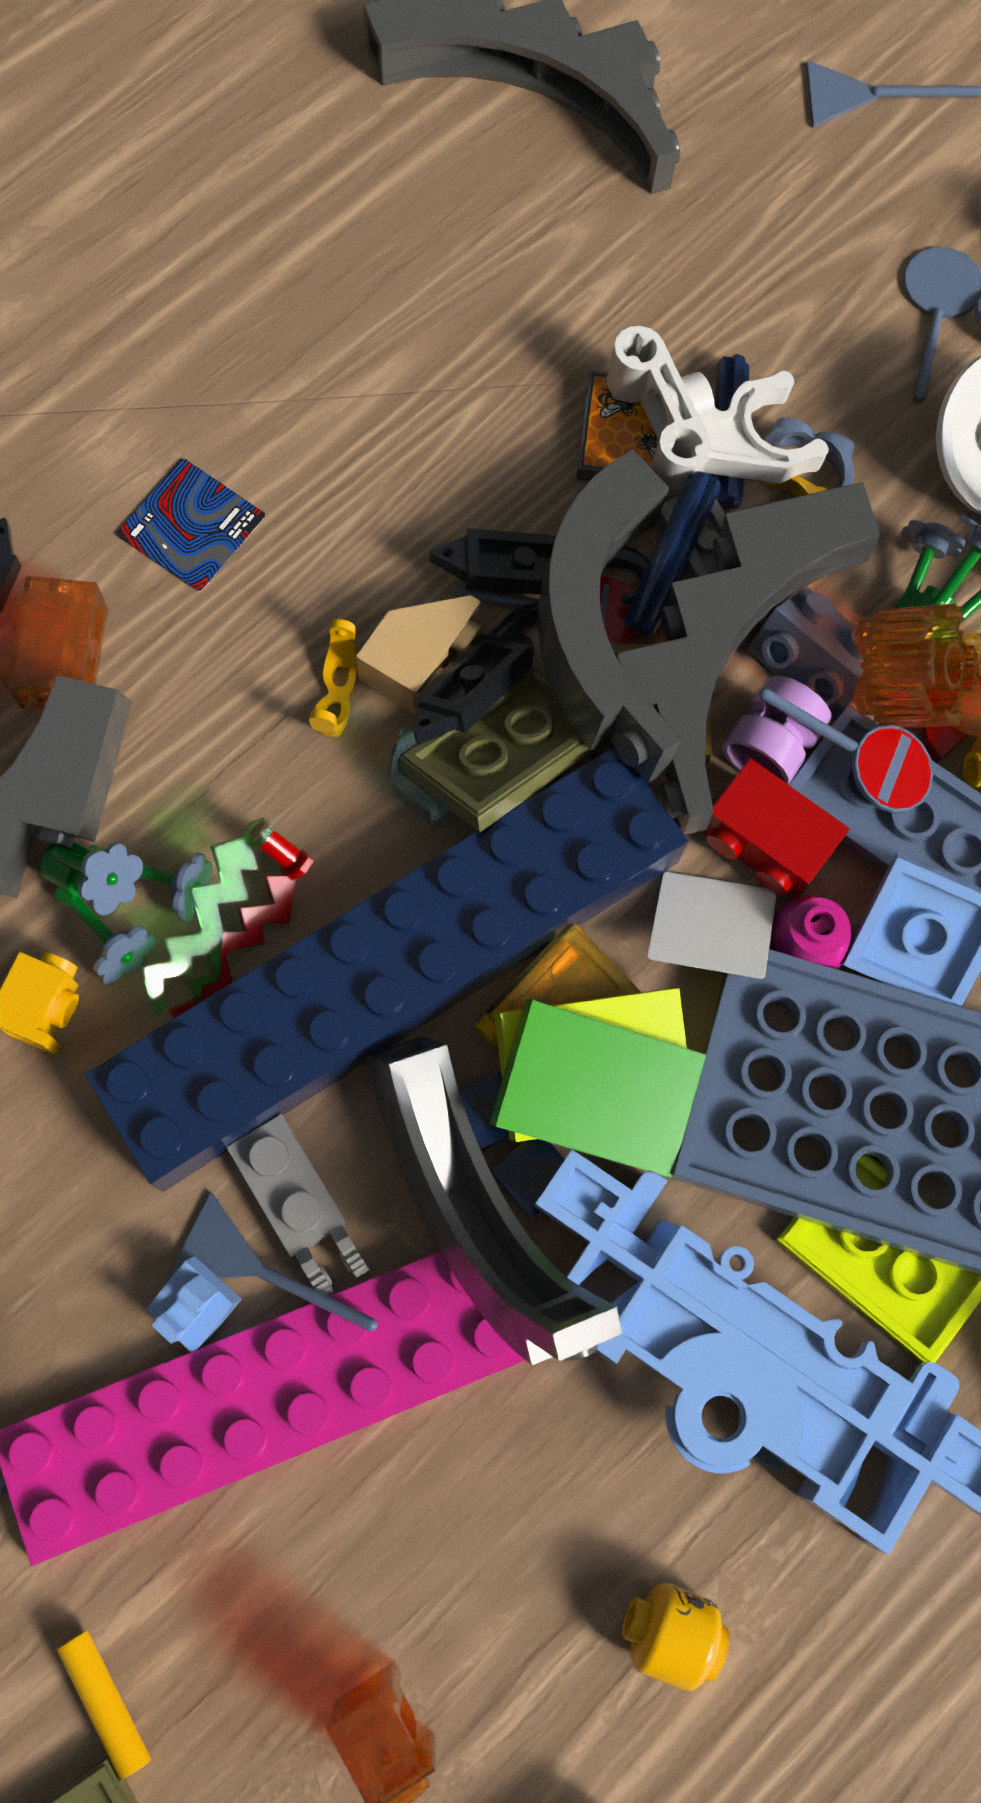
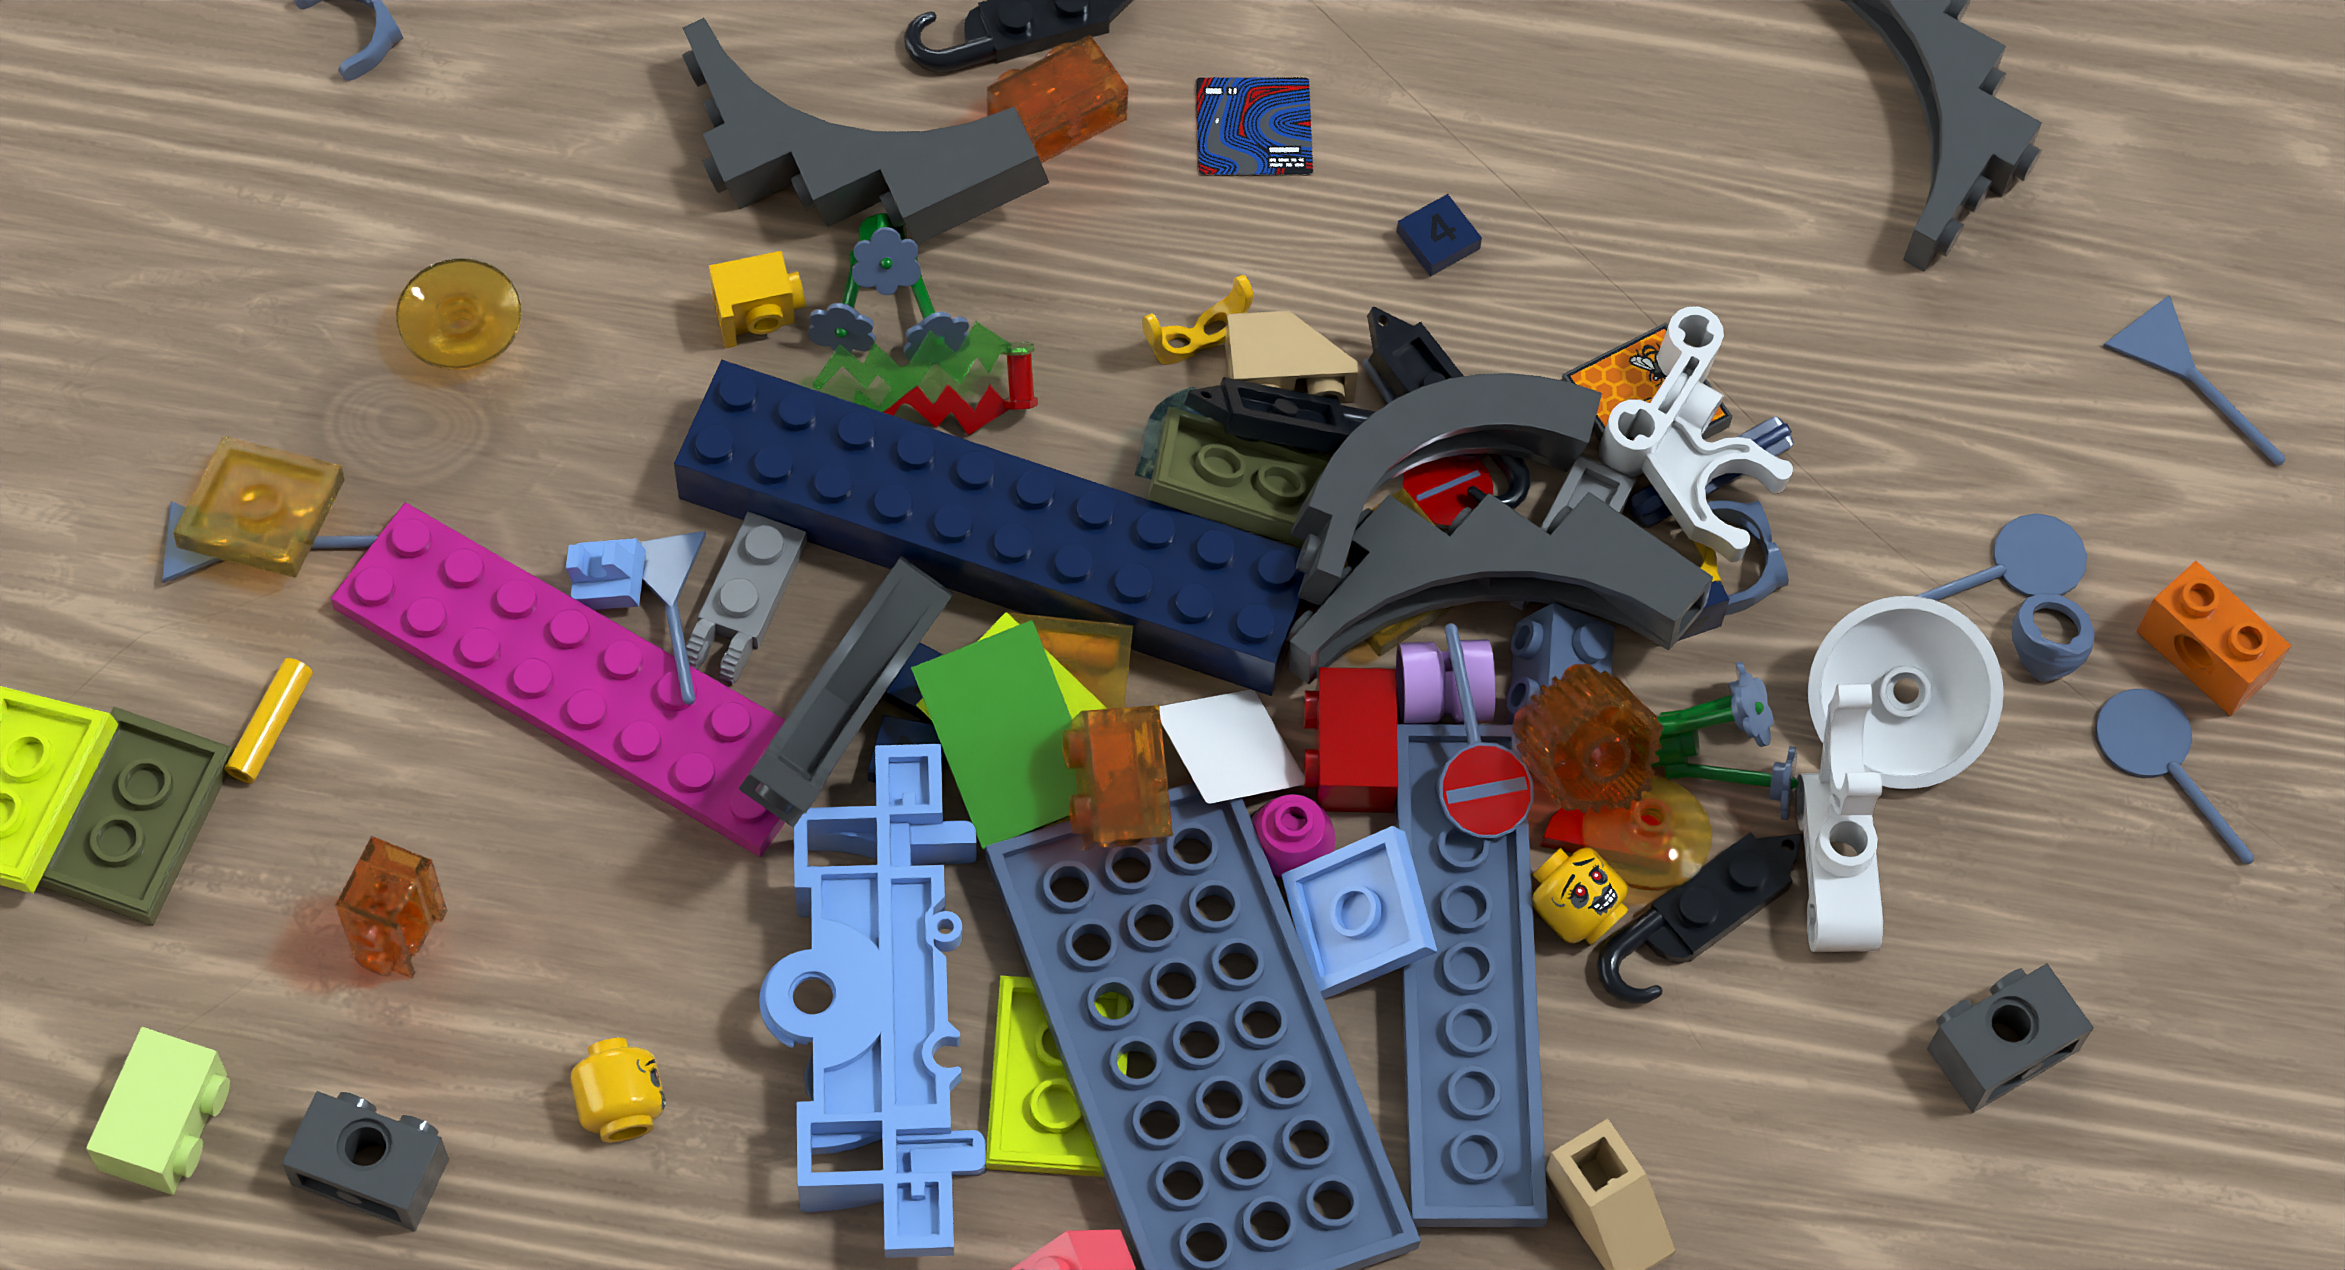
camera: 55 degrees right, 10 degrees down
(392, 466) = (1439, 235): none -> dark blue tile
(672, 552) = (1550, 486): dark blue axle -> none
(713, 1032) = (1118, 777): none -> clear orange hinge

